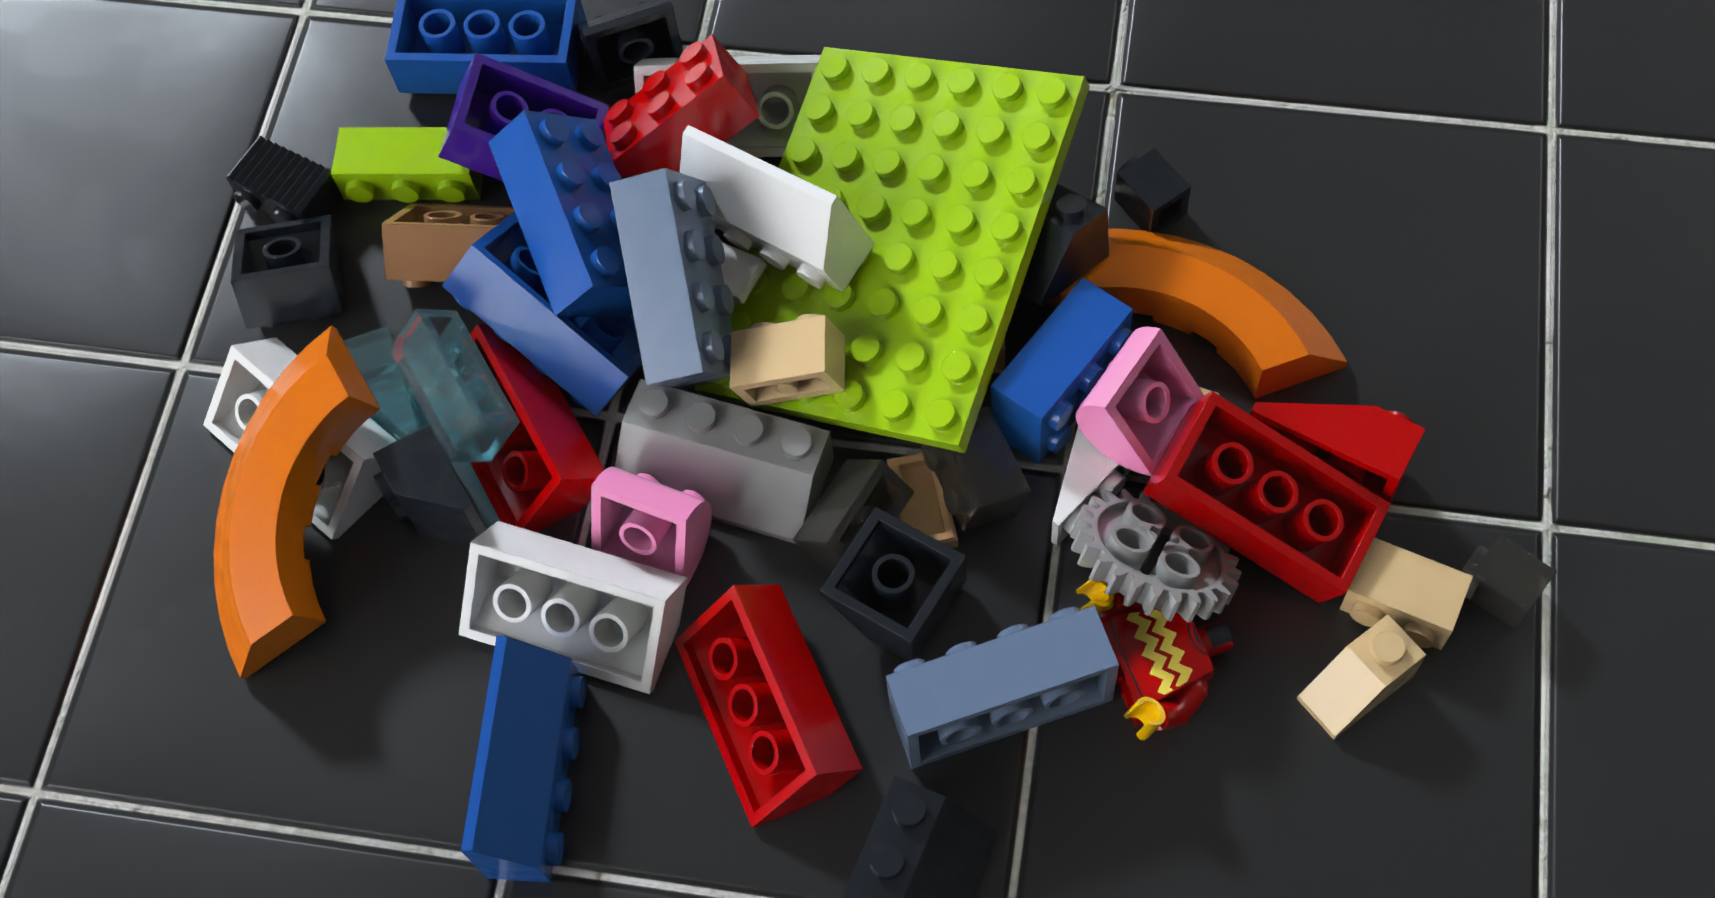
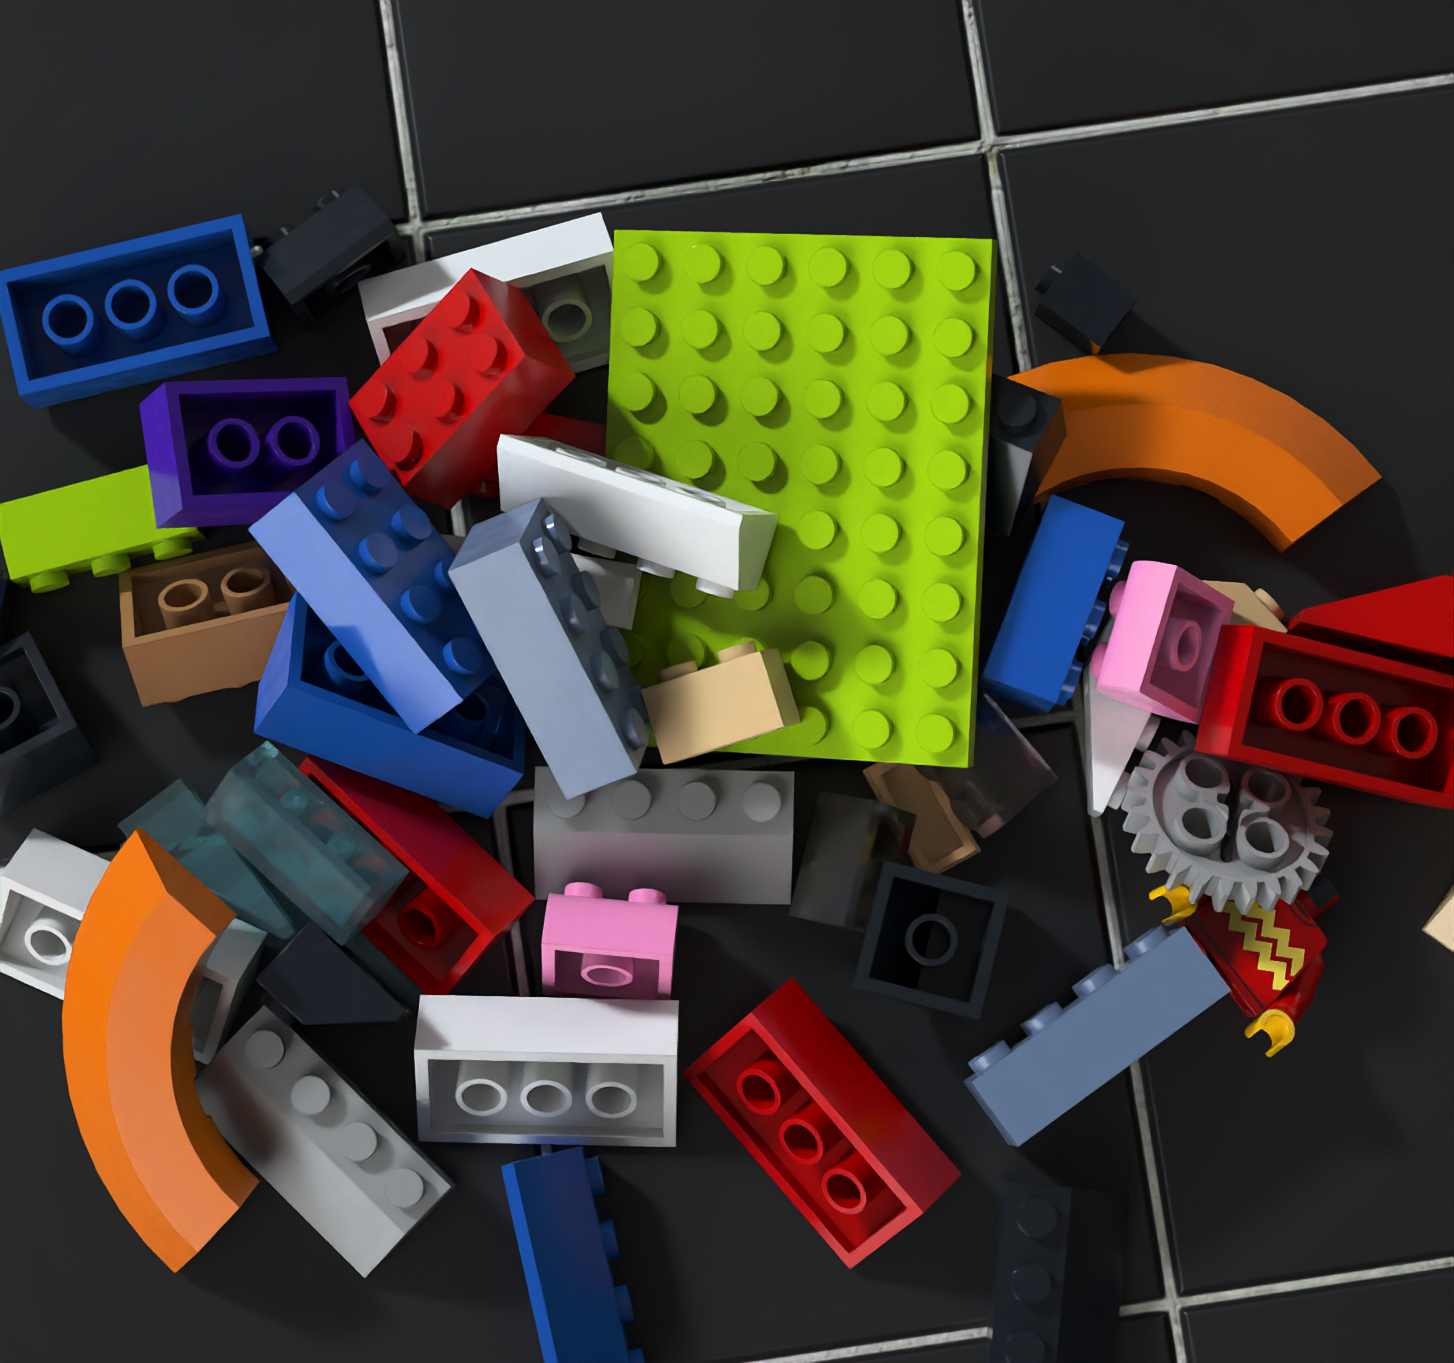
camera: 25 degrees left, 20 degrees up
(384, 608) = (319, 1140): none -> light grey slope

